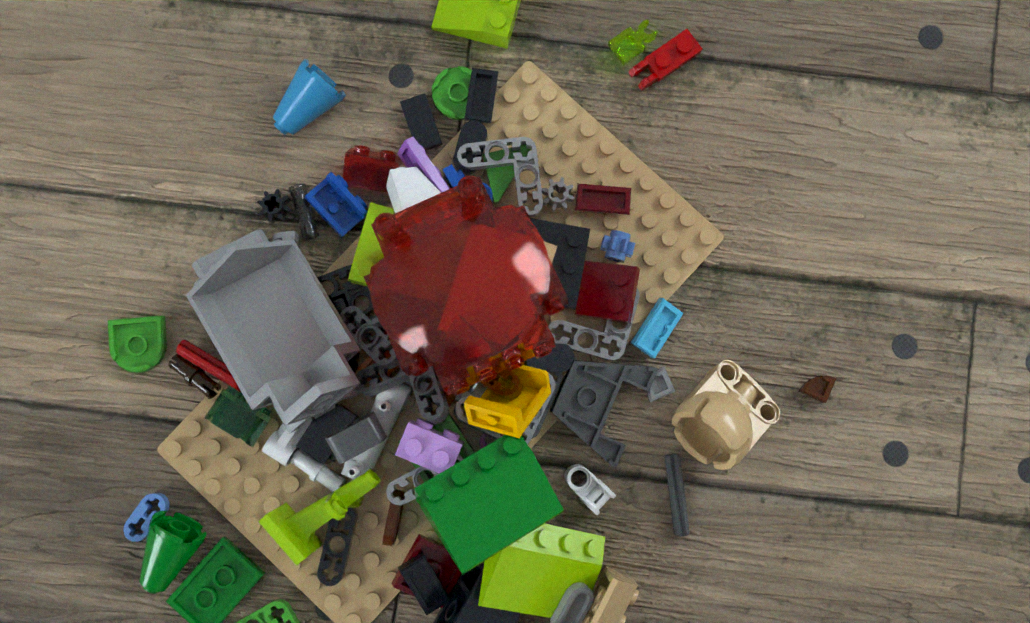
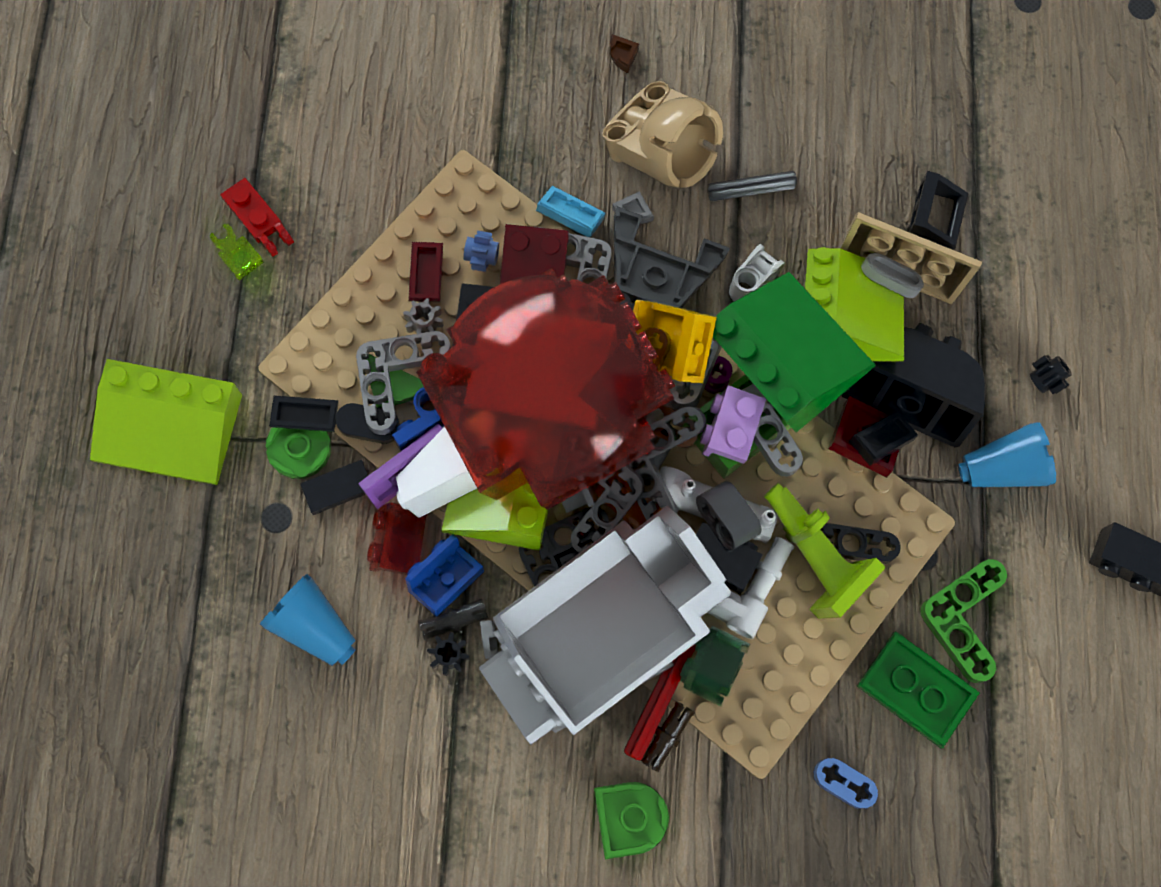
camera: 95 degrees left, 10 degrees down
(168, 549) = (882, 744): green cone -> none
(393, 520) = (816, 479): reddish brown tile -> none

